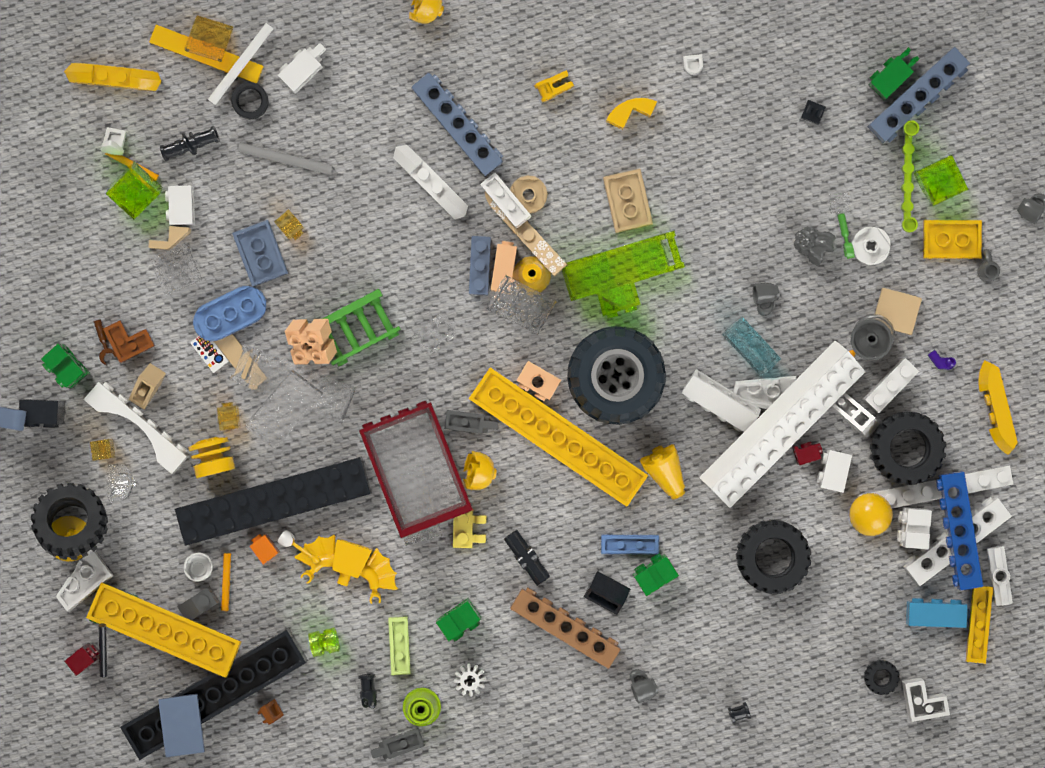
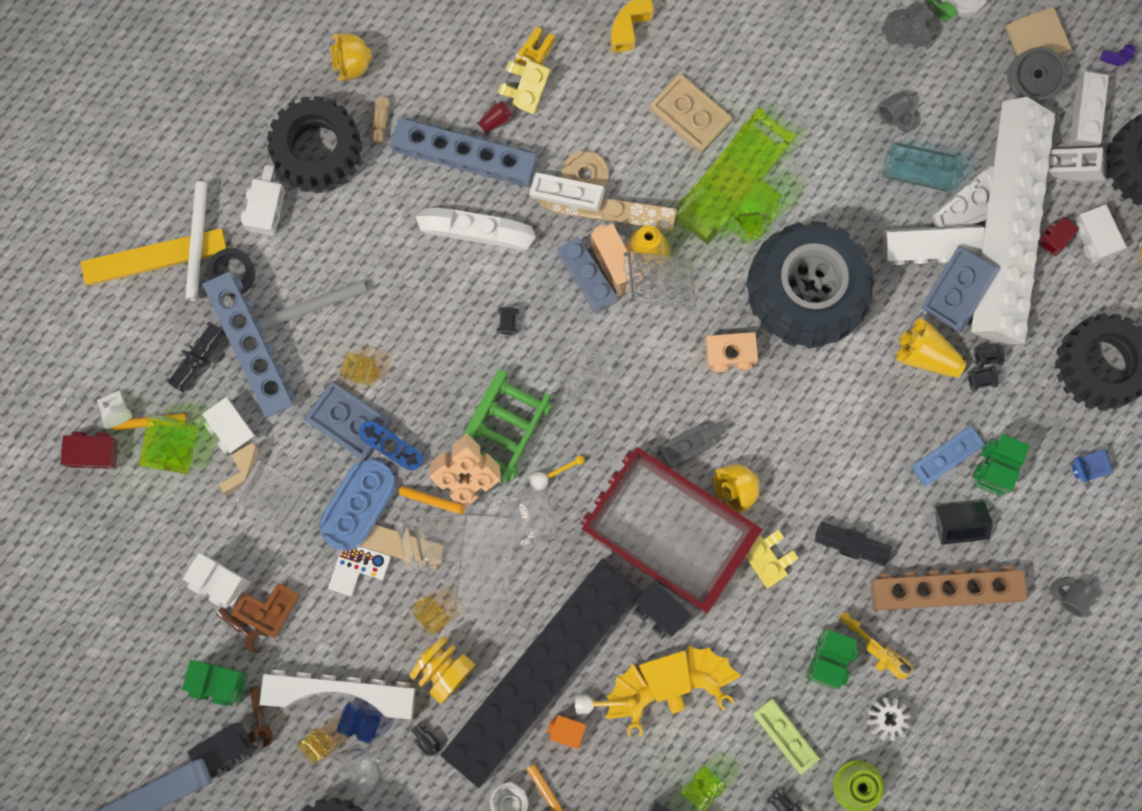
camera: 35 degrees left, 10 degrees down
(76, 418) = (264, 731): none -> reddish brown piece
(80, 159) = (89, 451): none -> dark red brick
(107, 302) = (216, 580): none -> white brick
(113, 76) = (69, 344): yellow brick -> none
(138, 453) = (359, 722): none -> clear blue wheel
(146, 386) = (319, 643): tan slope -> none
(173, 493) = (426, 741): none -> black cylinder
(188, 356) = (344, 581): none -> white tile
(209, 38) = (146, 238): clear yellow tile -> none
(216, 207) = (217, 290): none -> sand blue brick
(265, 278) = (402, 461): none -> blue beam
(278, 344) = (432, 500): none -> light orange bar
(356, 379) = (540, 480): none -> hinge
(361, 26) = (310, 115): none -> black tyre
(374, 515) = (661, 610): none -> black brick
(408, 259) = (507, 320): none -> black bush
(417, 62) = (380, 120): none -> tan axle
(495, 114) = (495, 117): none -> dark red cone
(496, 644) = (887, 657): none -> yellow piece
(534, 109) = (530, 87): none -> light yellow plate
(558, 437) = (793, 395): yellow plate -> none
(688, 511) = (982, 379): none -> black bush
(703, 499) = (989, 355): none -> black bush
(714, 444) = (960, 288): none -> sand blue tile
(715, 615) = (1092, 466): none -> blue bracket

